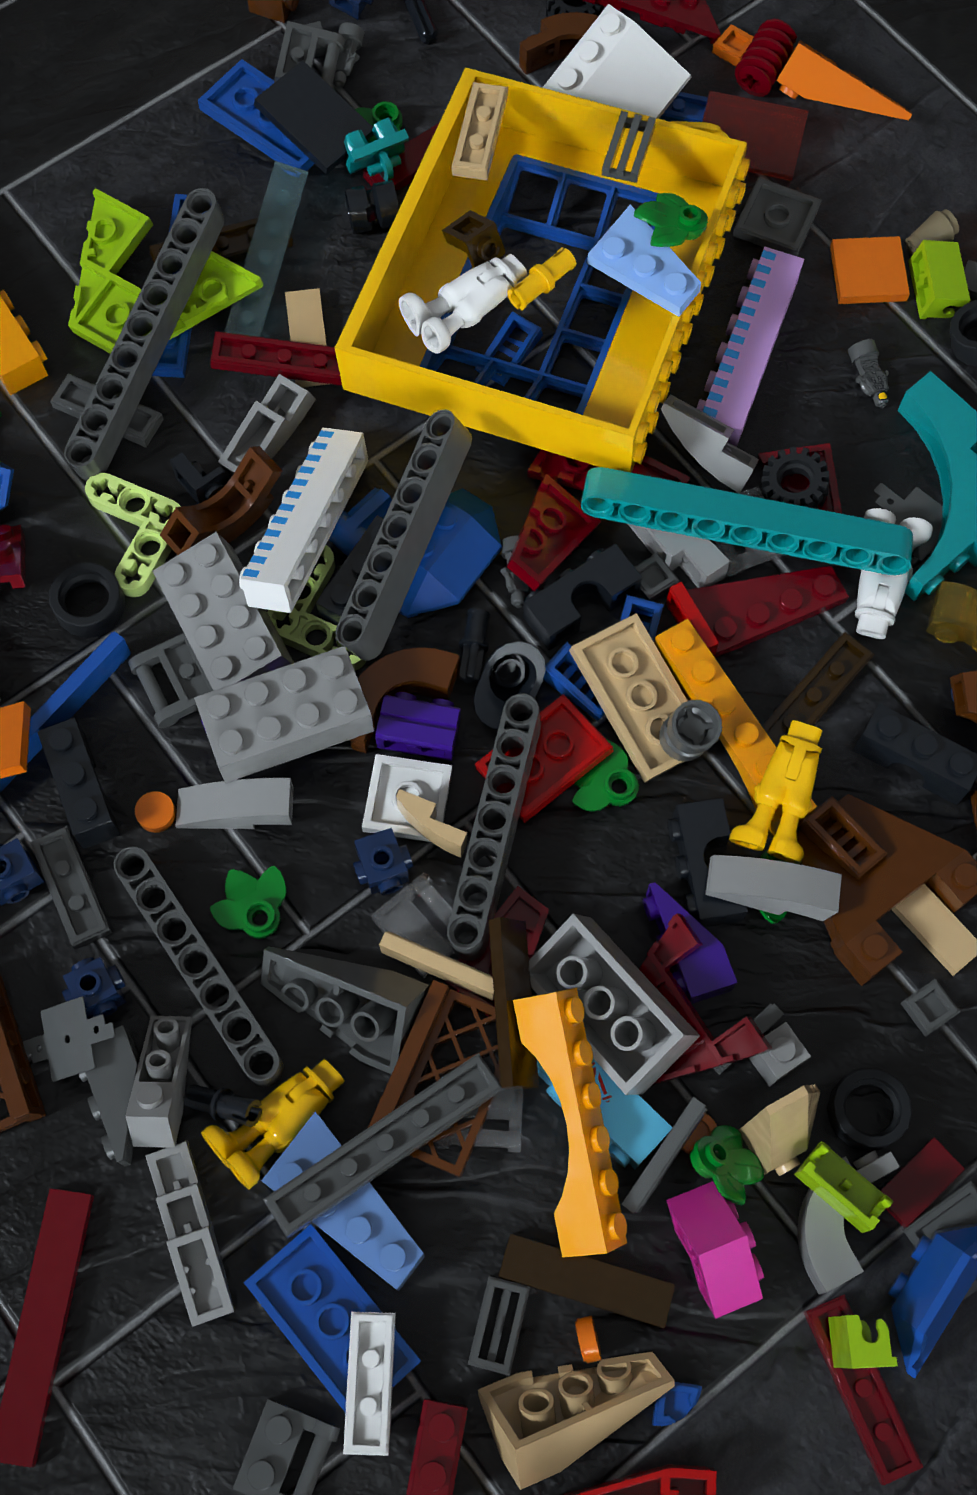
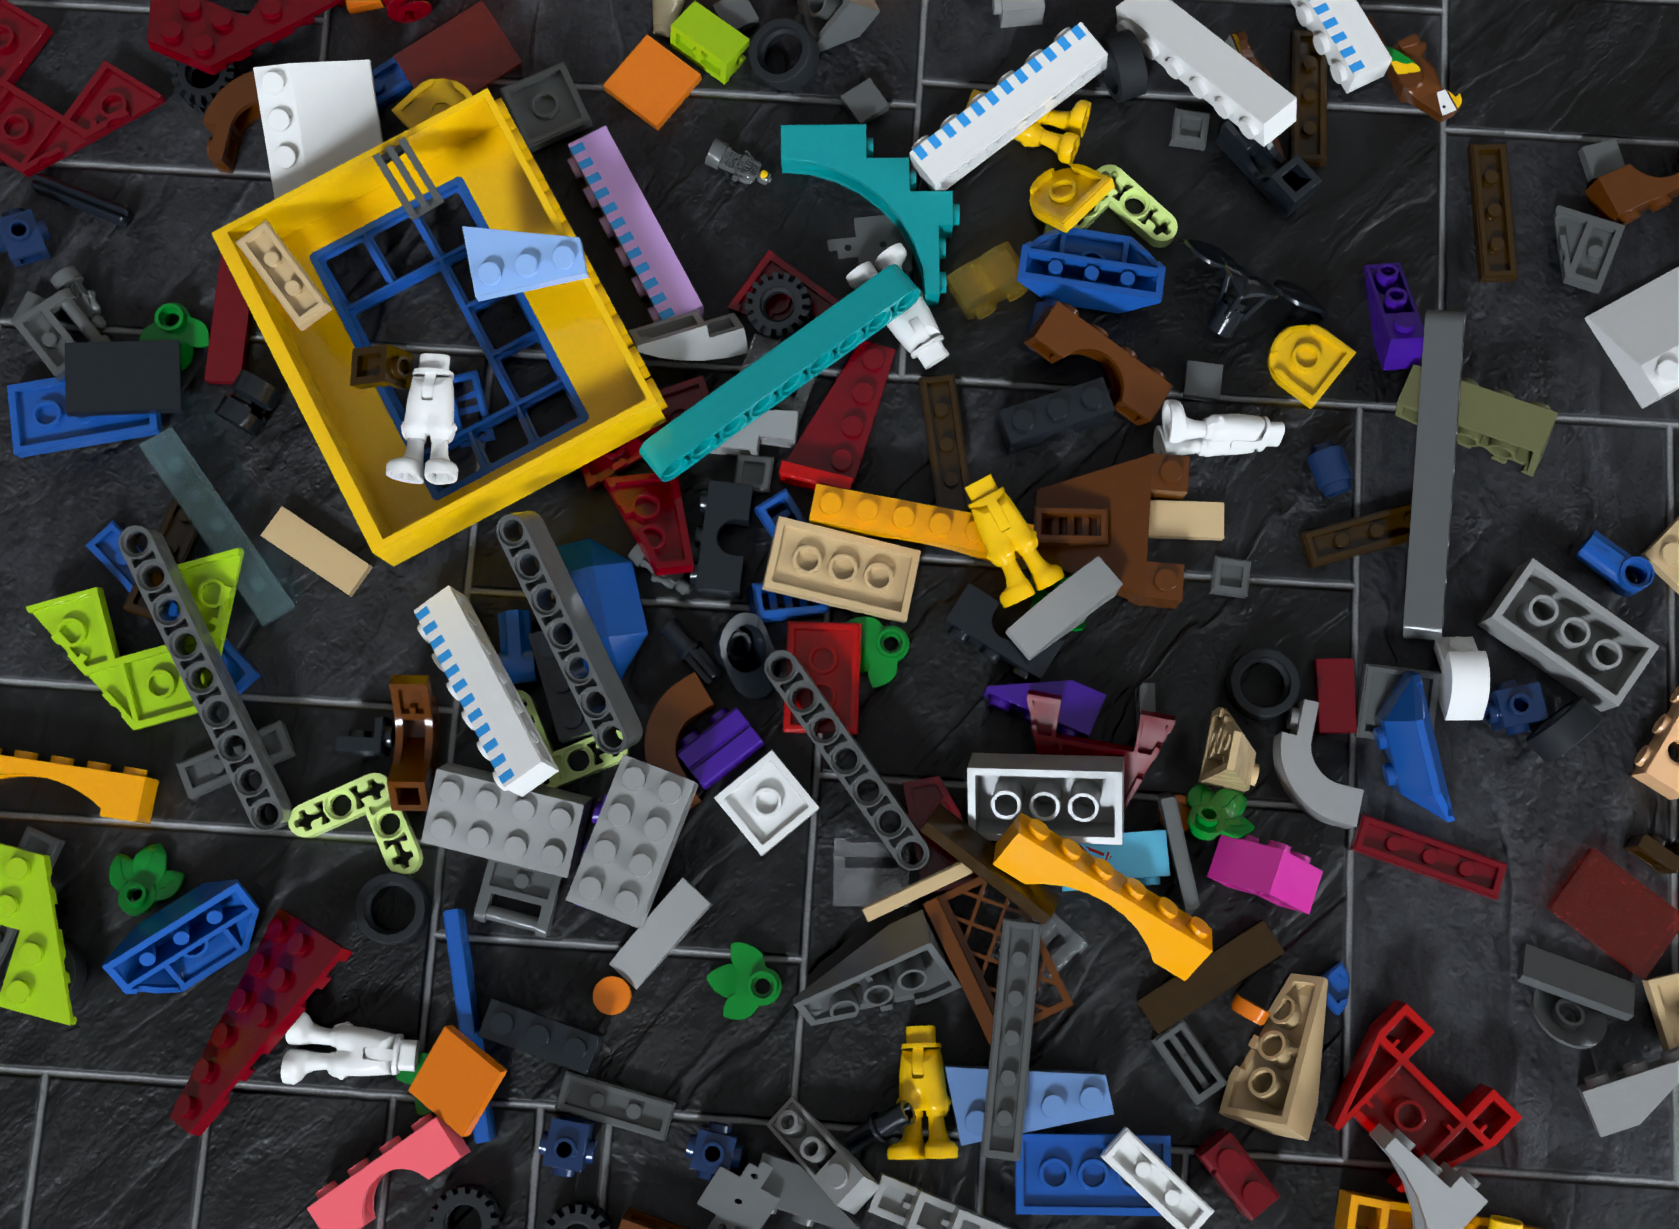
camera: 45 degrees left, 10 degrees up
(187, 949) = (741, 1065): dark grey beam -> none
(269, 422) = (368, 649): light grey slope -> none
(275, 357) = (318, 592): dark red tile -> none
(378, 155) = (204, 340): teal hips -> none
(382, 862) = (791, 854): dark blue brick -> none
(422, 816) = (795, 807): tan slope -> none
(541, 278) = (464, 349): yellow pin -> none
(672, 220) = (501, 210): green plate -> none
(690, 730) = (903, 561): dark grey wheel -> none
(785, 1056) = (1179, 704): light grey brick -> none
(843, 1188) = (1303, 753): lime hinge -> none
(853, 1343) = (1409, 843): lime hinge -> none

